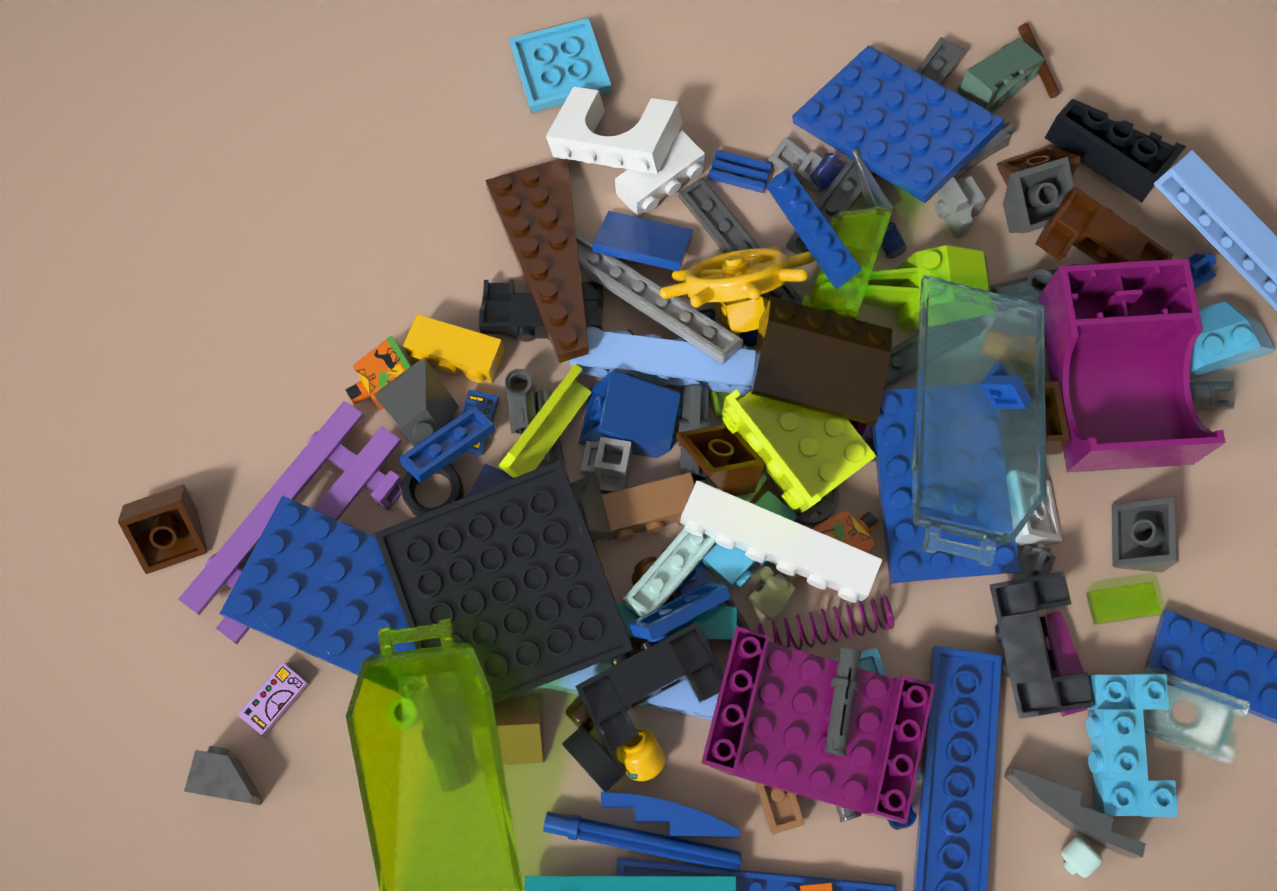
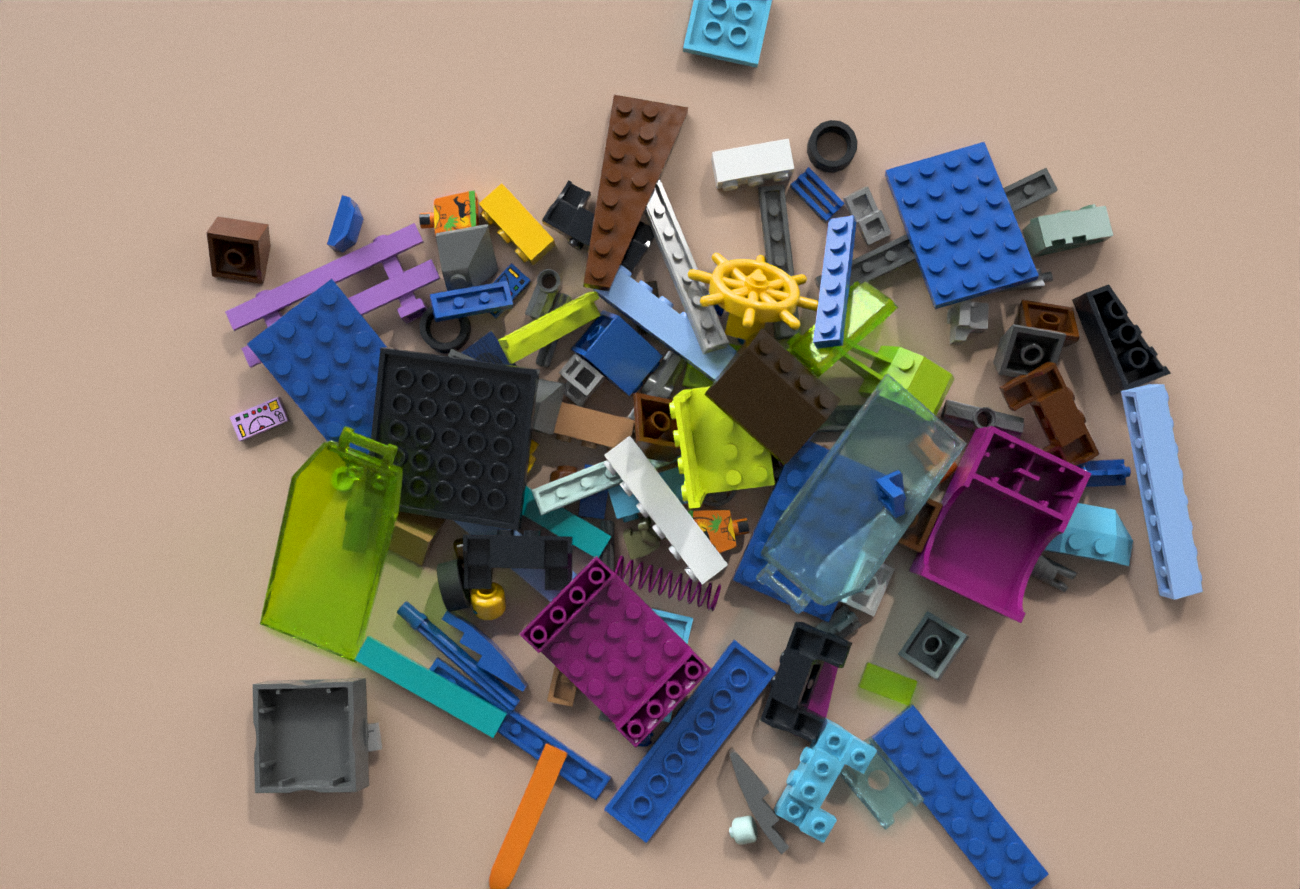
camera: 25 degrees right, 15 degrees up
(221, 776) = (199, 456): flat silver slope -> none
(271, 444) = (346, 225): none -> blue slope
(638, 149) = (743, 139): white arch -> none
(642, 241) = (706, 214): blue tile -> none
(679, 611) = (566, 521): blue plate -> none
(727, 102) = (834, 127): none -> black tyre
(831, 175) = (891, 237): clear blue piece -> none
(842, 701) = (641, 645): dark grey pin -> none
(871, 190) = (905, 278): flat silver piece -> none
(894, 243) = (897, 319): clear blue piece -> none
(1044, 73) = (1115, 222): reddish brown bar -> none

